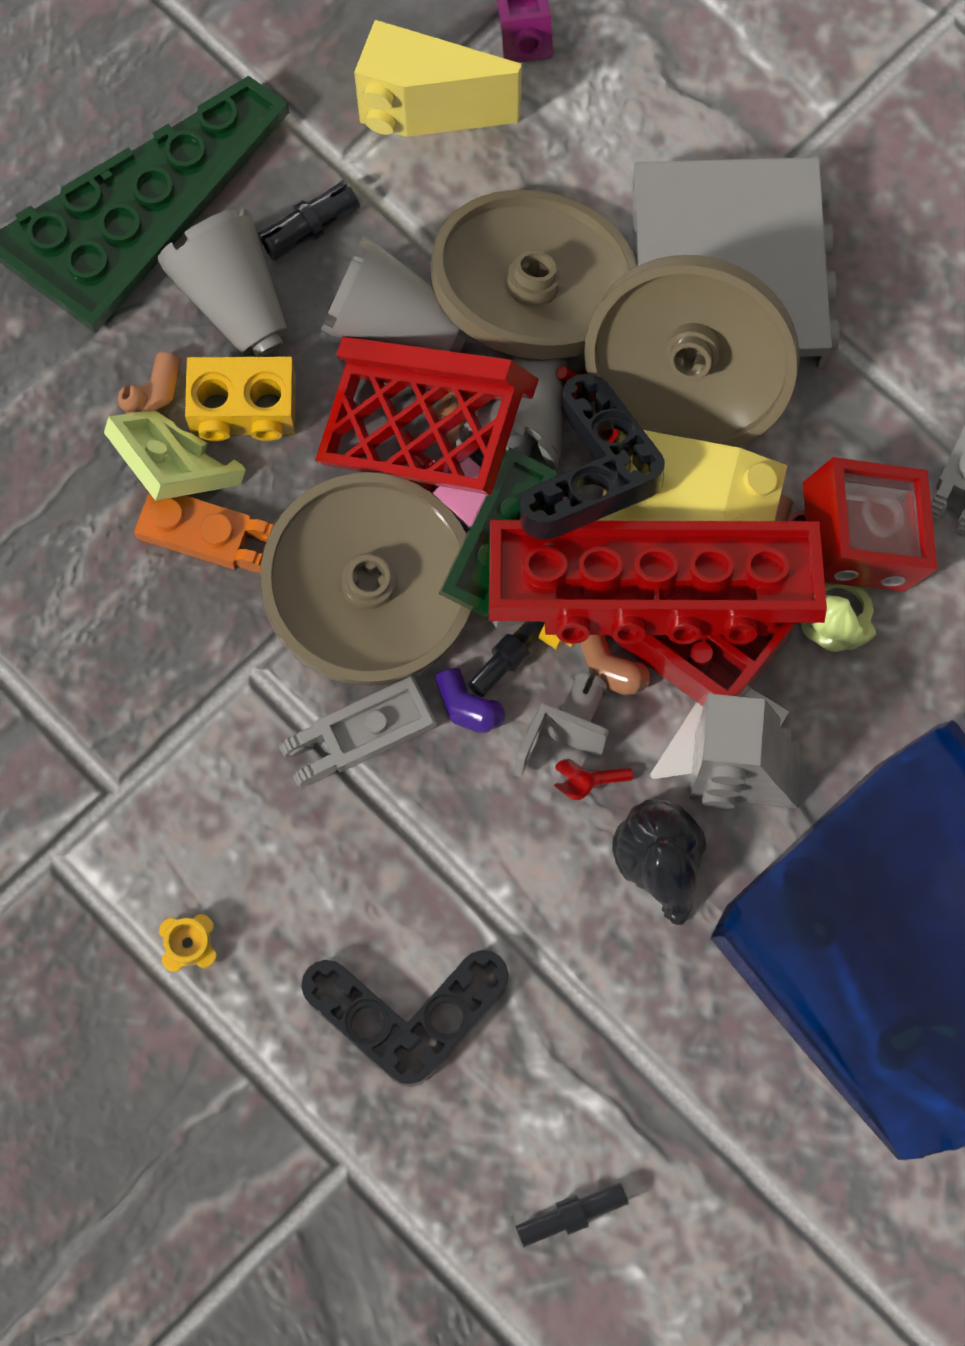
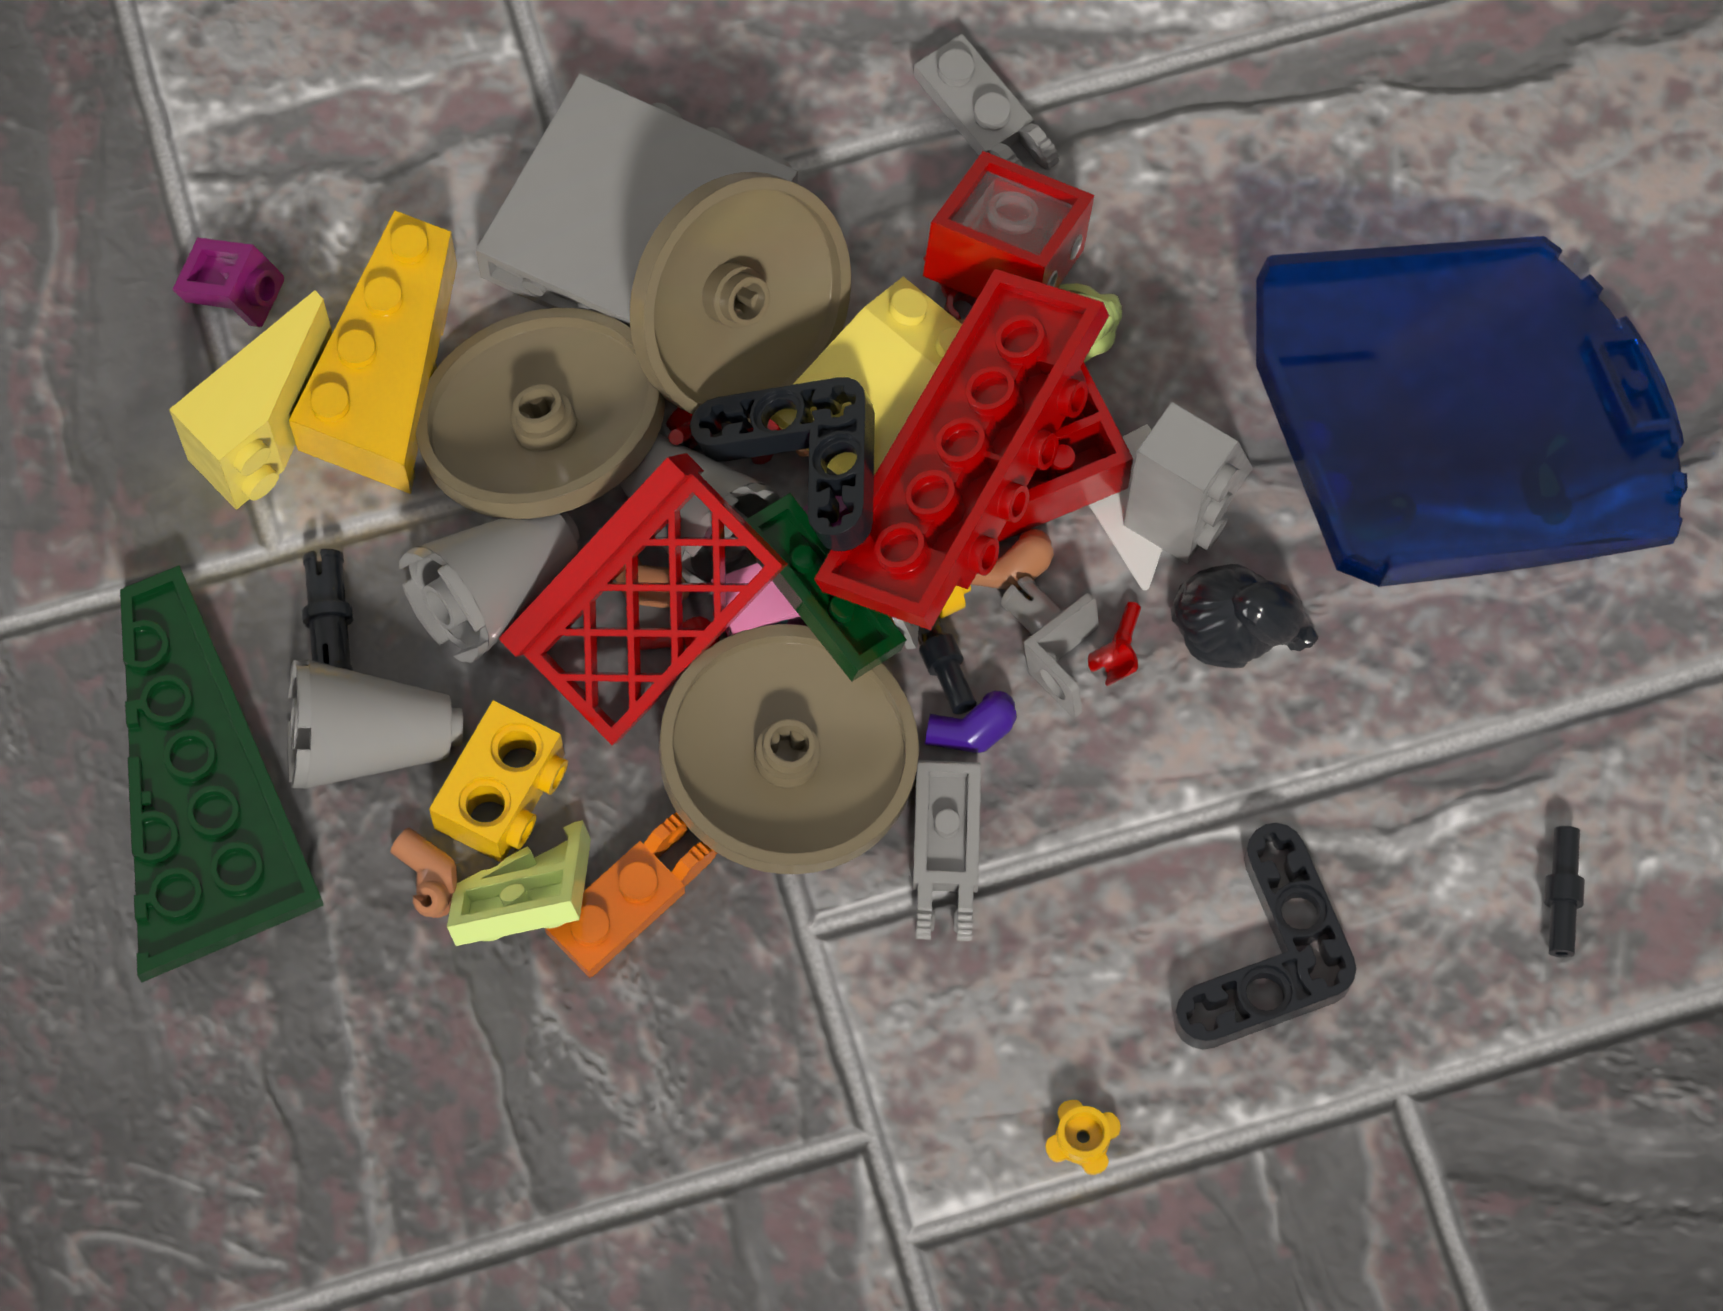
camera: 65 degrees left, 5 degrees down
(525, 145) = (380, 357): none -> yellow wedge

